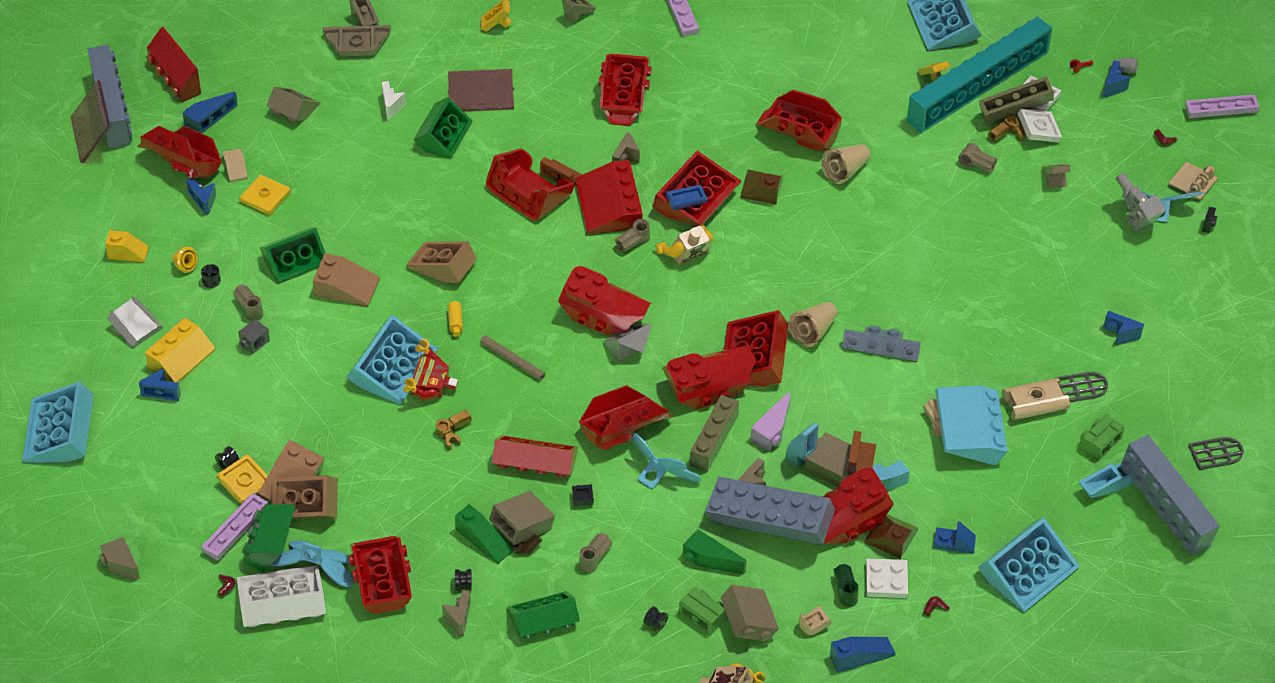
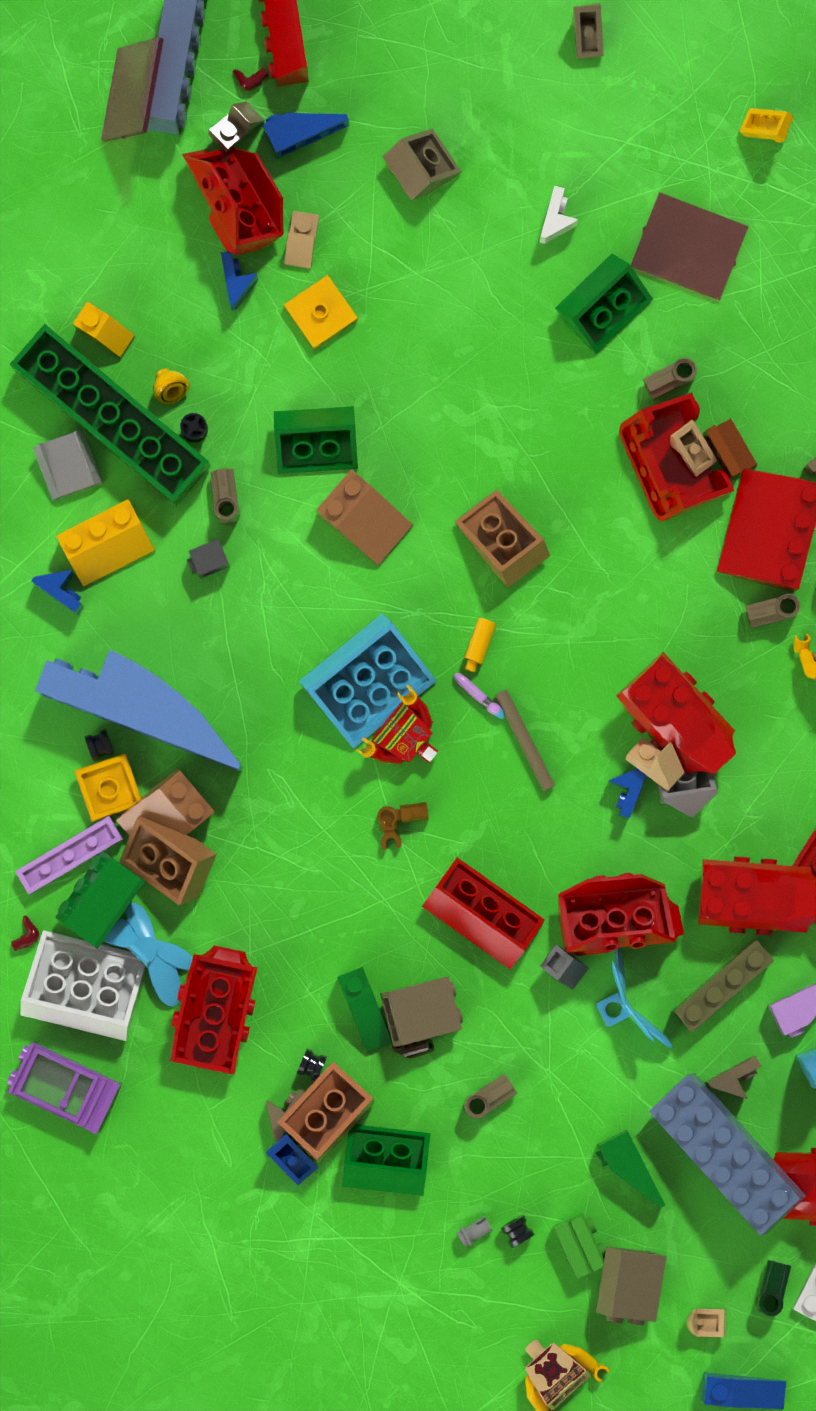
camera: 25 degrees right, 35 degrees up
(152, 284) = (110, 415): none -> green brick
(165, 103) = (251, 82): none -> dark red animal
(167, 118) = (235, 126): none -> dark tan slope
(246, 421) = (136, 701): none -> medium blue slope
(294, 658) = (63, 1087): none -> medium lavender door
(357, 39) = (558, 78): dark tan wing -> none
(470, 346) = (492, 707): none -> lavender piece
(474, 632) = (292, 1159): none -> blue slope
(488, 596) = (326, 1112): none -> nougat slope
(509, 143) = (668, 379): none -> dark tan piece
(534, 170) = (693, 448): none -> tan slope
(582, 495) = (514, 1003): black plate -> none
(592, 353) = (632, 782): none -> blue slope
(604, 458) = (564, 967): none -> dark grey brick
(608, 328) = (658, 765): none -> tan slope
(623, 636) = (474, 1231): none -> light grey pin

